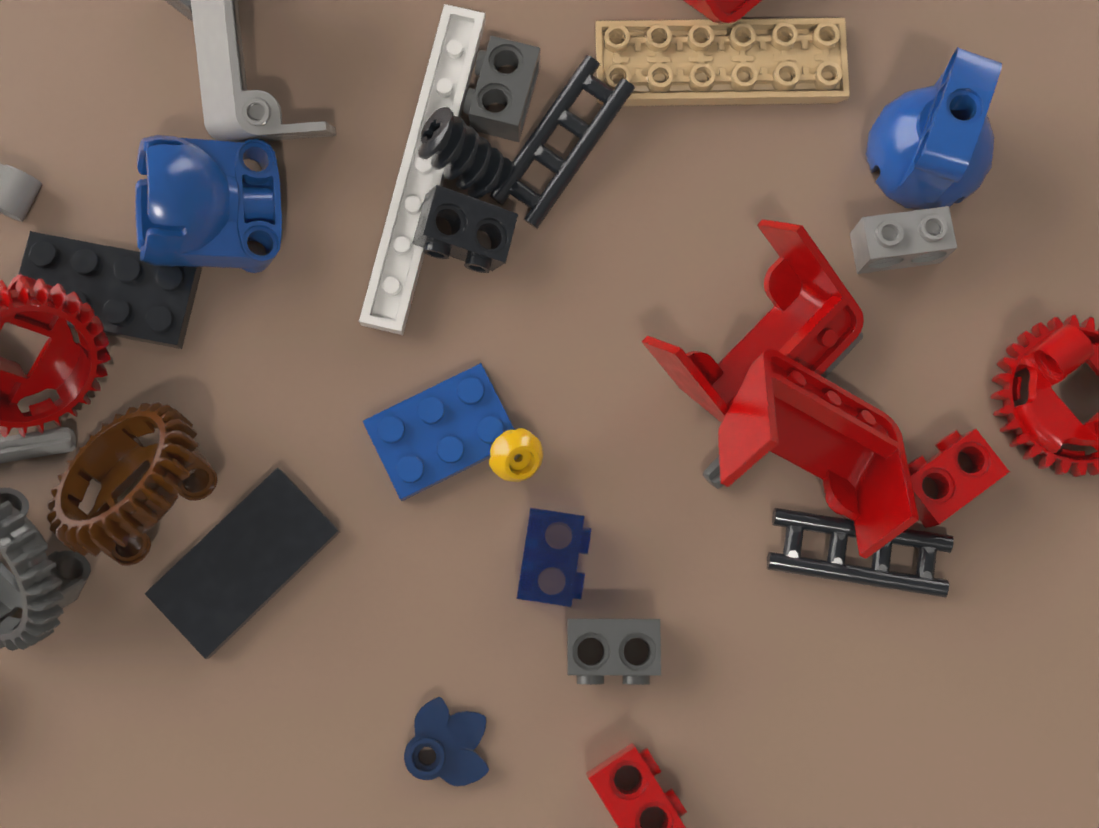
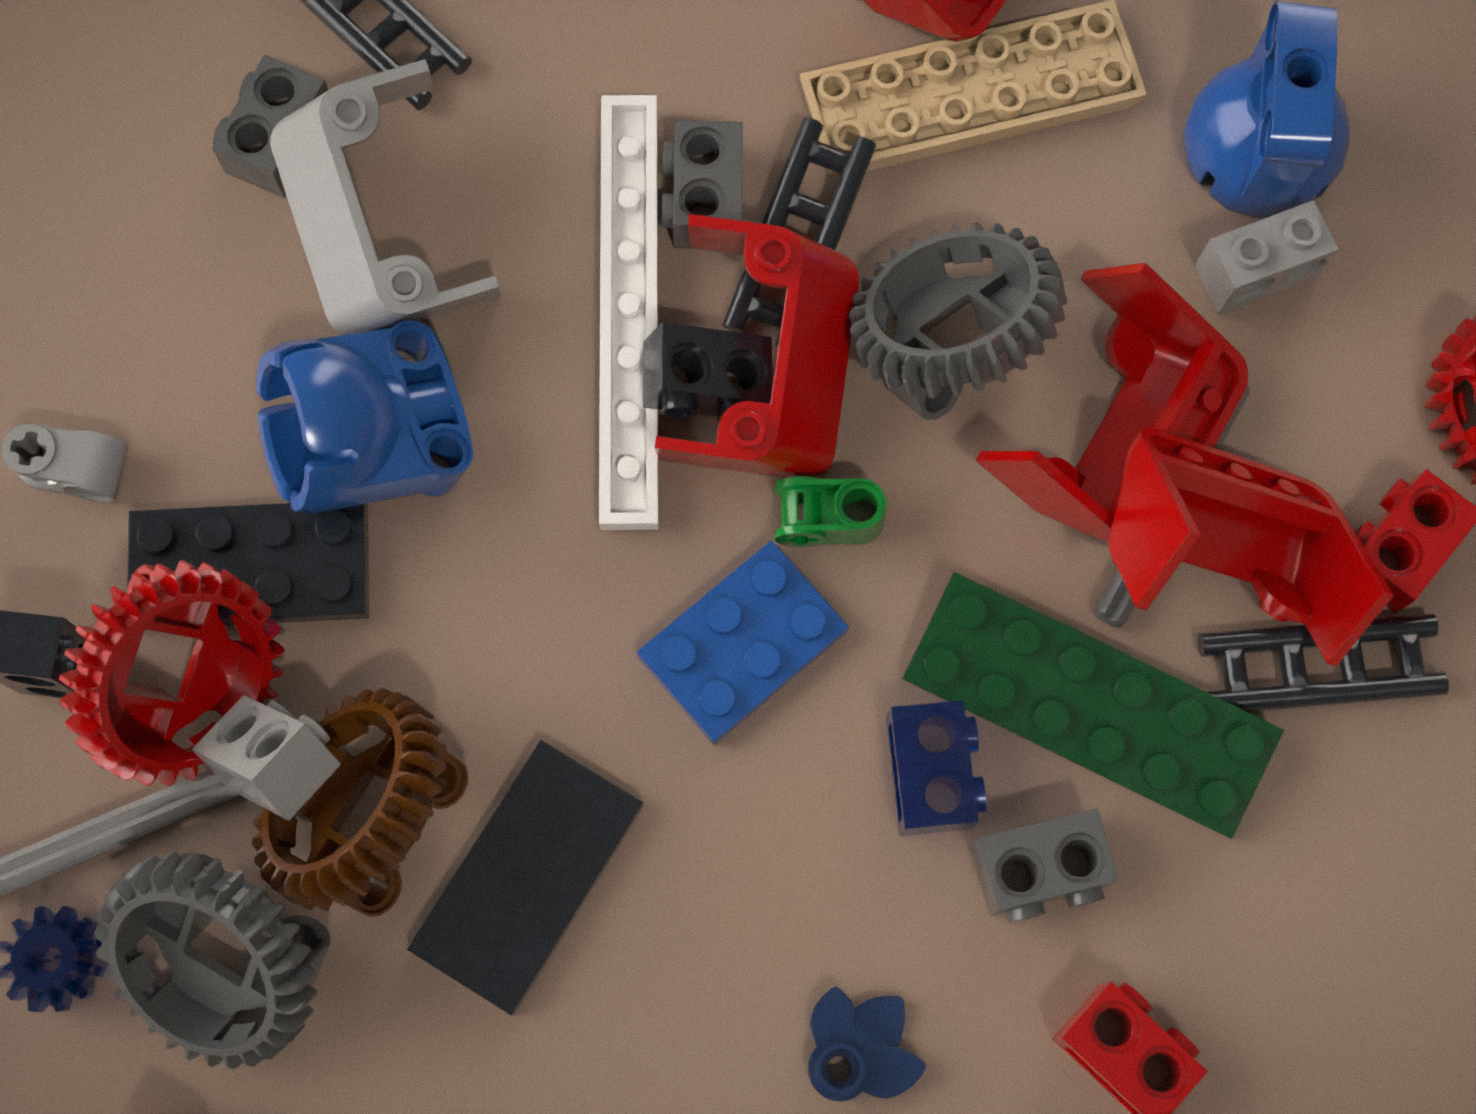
camera: 15 degrees left, 5 degrees down
(74, 433) = (268, 755): none -> light grey brick
(463, 154) = (680, 277): black piece -> none
(507, 447) = (835, 643): yellow plate -> none
(524, 350) = (823, 511): none -> green piece
(541, 236) = (802, 421): none -> red windscreen
(637, 207) = (1011, 305): none -> dark grey piece
(681, 541) = (1093, 705): none -> dark green plate

